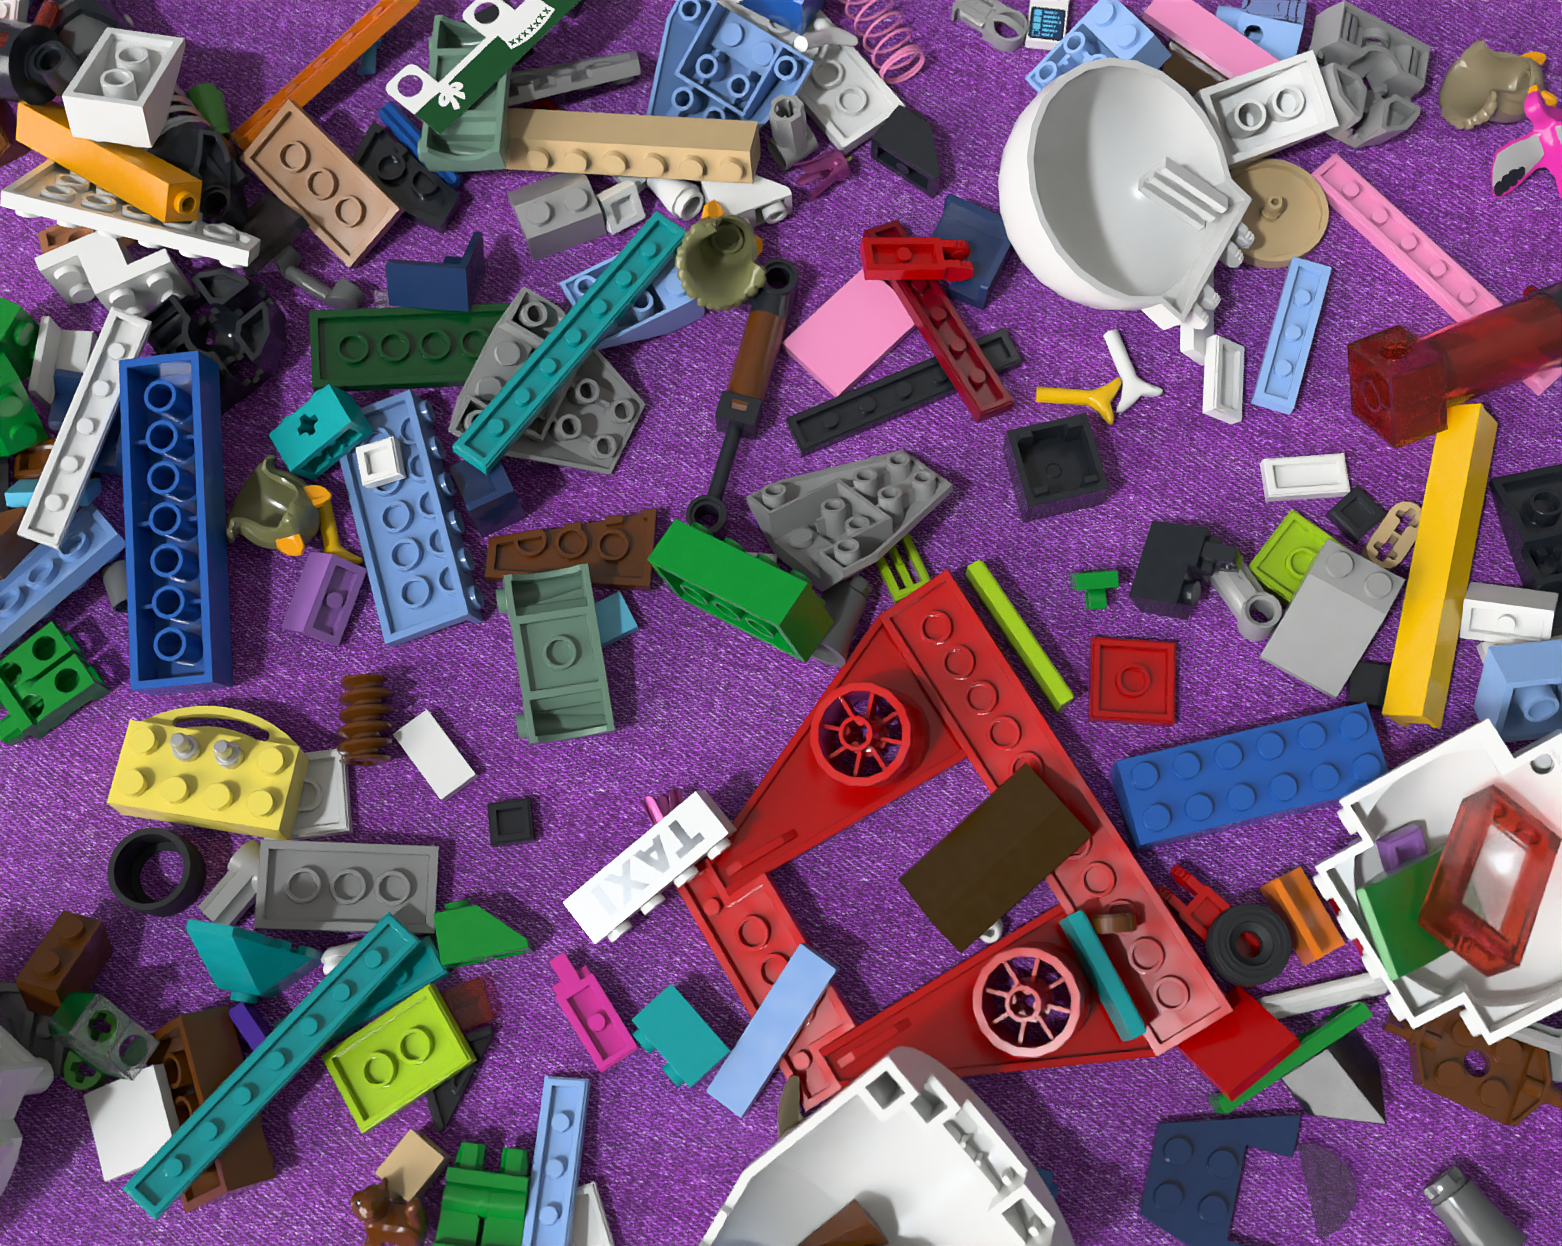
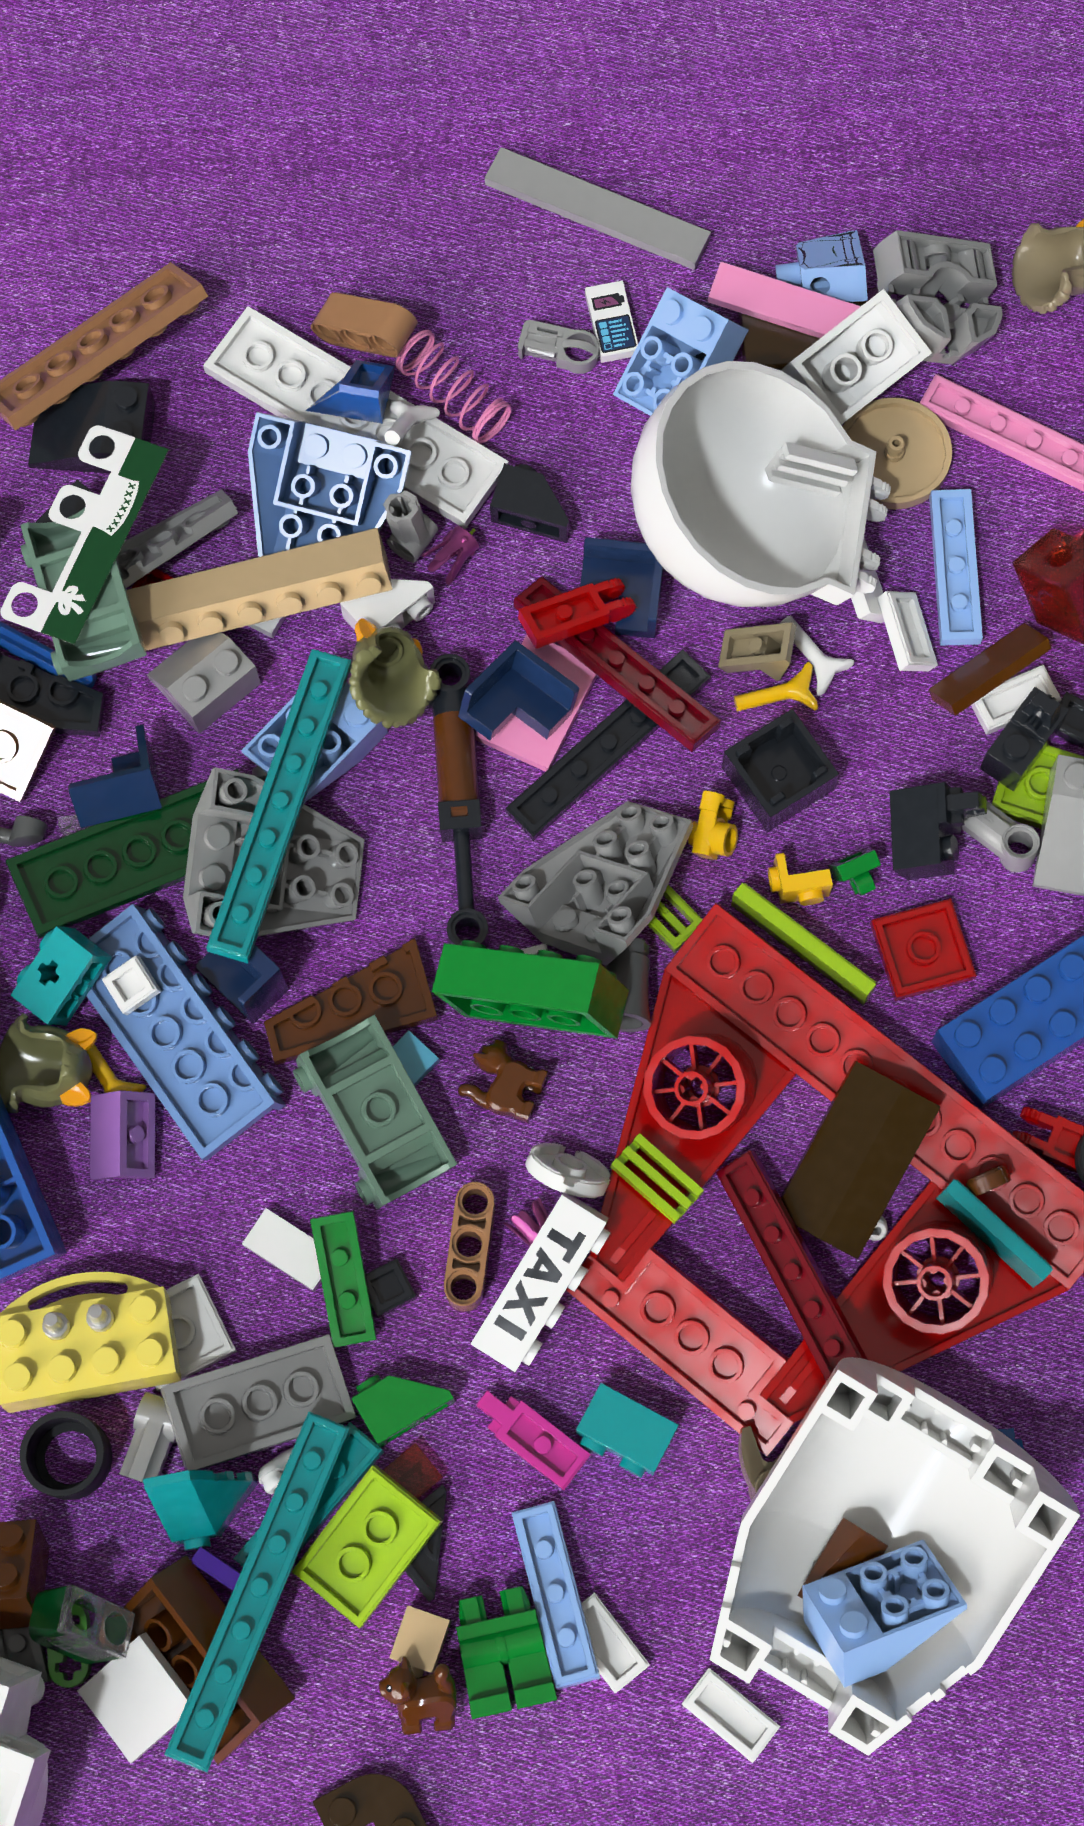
camera: 20 degrees left, 0 degrees up
(364, 720) = (211, 1240): reddish brown piece -> none
(470, 799) = (343, 1278): none -> green plate
(599, 790) = (464, 1226): none -> medium nougat beam
(620, 206) = (268, 652): white tile -> none
(678, 196) = (320, 624): white cone -> none
(693, 673) = (512, 1079): none -> reddish brown animal
(715, 774) = (569, 1174): none -> white tile
(772, 1030) = (710, 1392): tile -> none
(779, 776) = (668, 1166): none -> lime tile
(834, 308) = (521, 687): none -> dark blue panel
(894, 934) = (789, 1262): none -> dark red tile
(970, 504) = (712, 832): none -> yellow plate
(1038, 584) = (806, 887): none -> yellow bracket
(1075, 349) = (758, 648): none -> dark tan slope
(1290, 440) = (989, 669): none -> reddish brown tile
(1300, 513) = (1024, 738): none -> black hinge

